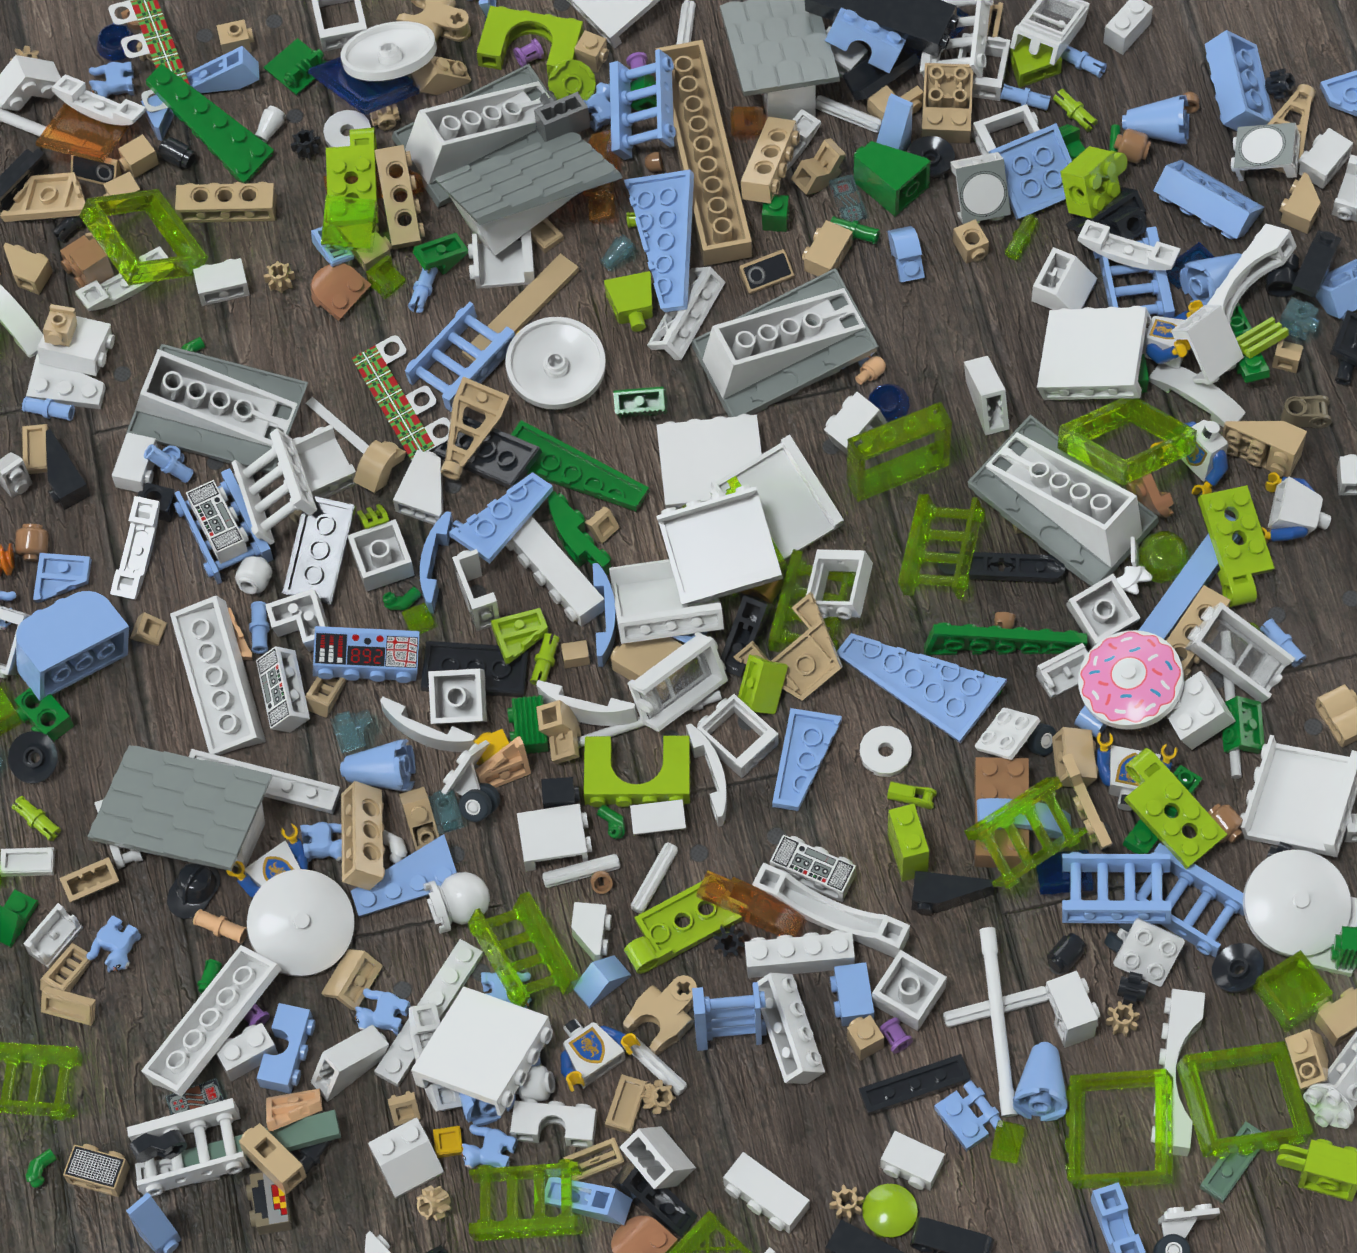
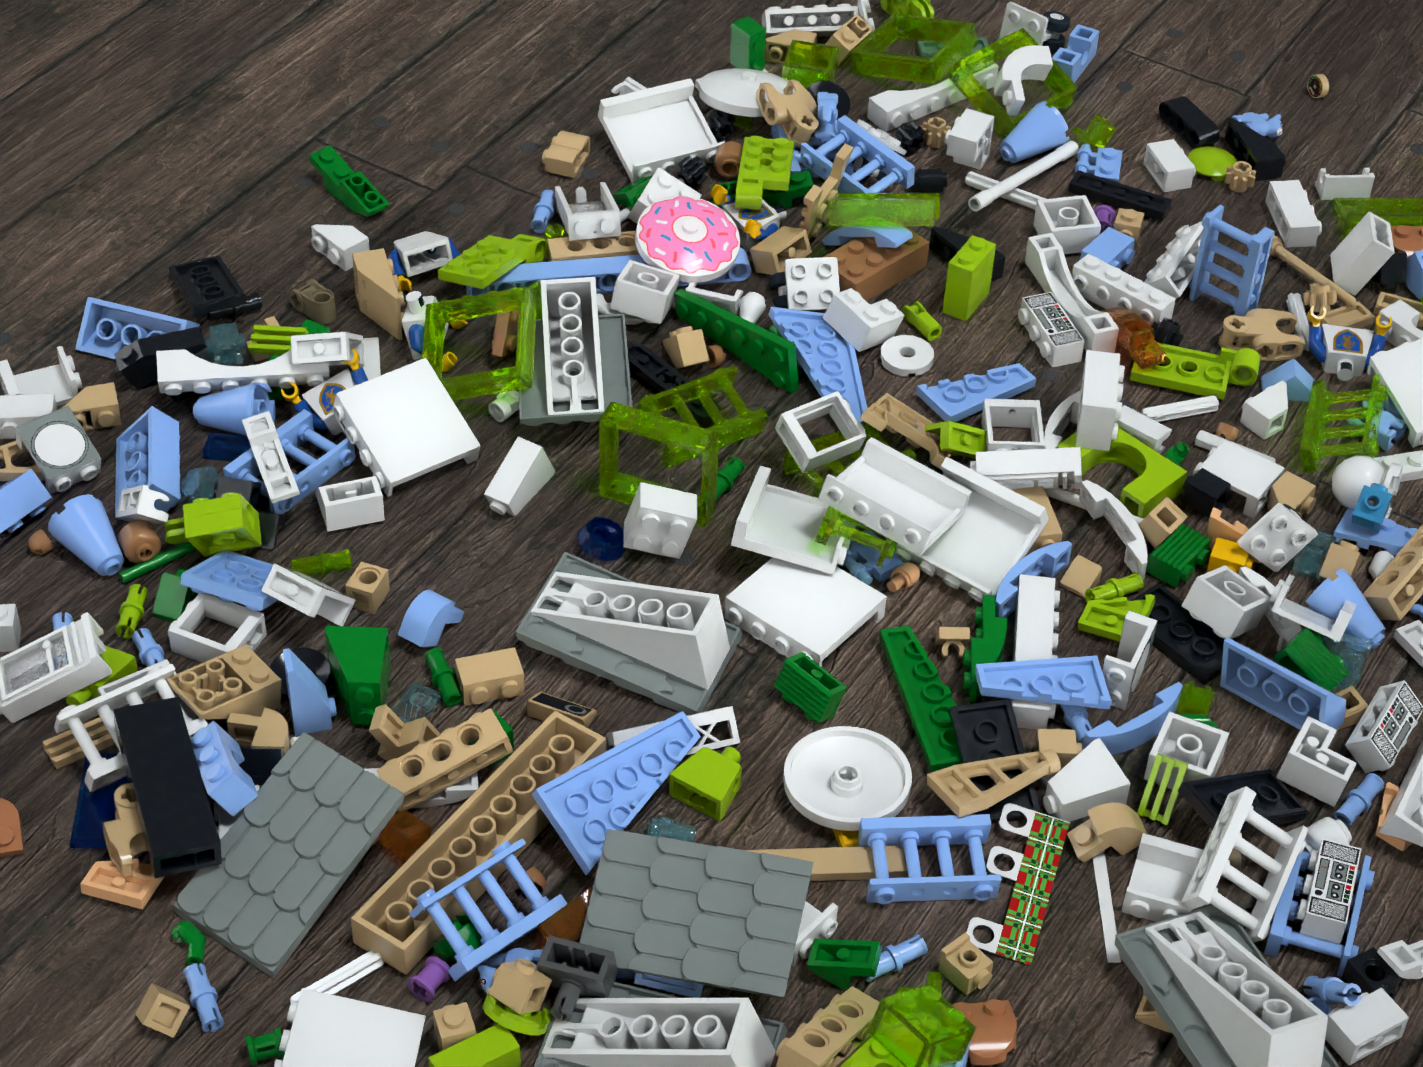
camera: 140 degrees left, 20 degrees down
(361, 688) = (1312, 660): none -> green brick
(379, 317) = (965, 965): none -> tan brick
(389, 713) = (1307, 617): none -> white panel
(429, 860) = (1372, 516): none -> dark azure brick
(462, 497) = (1061, 741): none -> tan brick
(502, 846) = (1294, 492): none -> tan slope
(579, 81) = (520, 986): none -> tan brick
(686, 773) = (1099, 400): none -> white brick
(745, 1135) = (1278, 250): none -> tan piece
(872, 517) = (727, 475): none -> green pin
(928, 729) = (861, 322): none -> white brick
(1027, 603) = (686, 347): none -> tan slope
(1030, 685) = (752, 306): none -> white cone
(1118, 1123) = (1022, 64): none -> white arch
(1148, 149) = (138, 504): none -> white hinge
(1158, 211) = (199, 482): none -> clear light blue brick
(1193, 912) = (826, 116): none -> light blue animal
(1222, 889) = (793, 112): none -> tan piece
(1234, 783) = (692, 170): none -> black gear

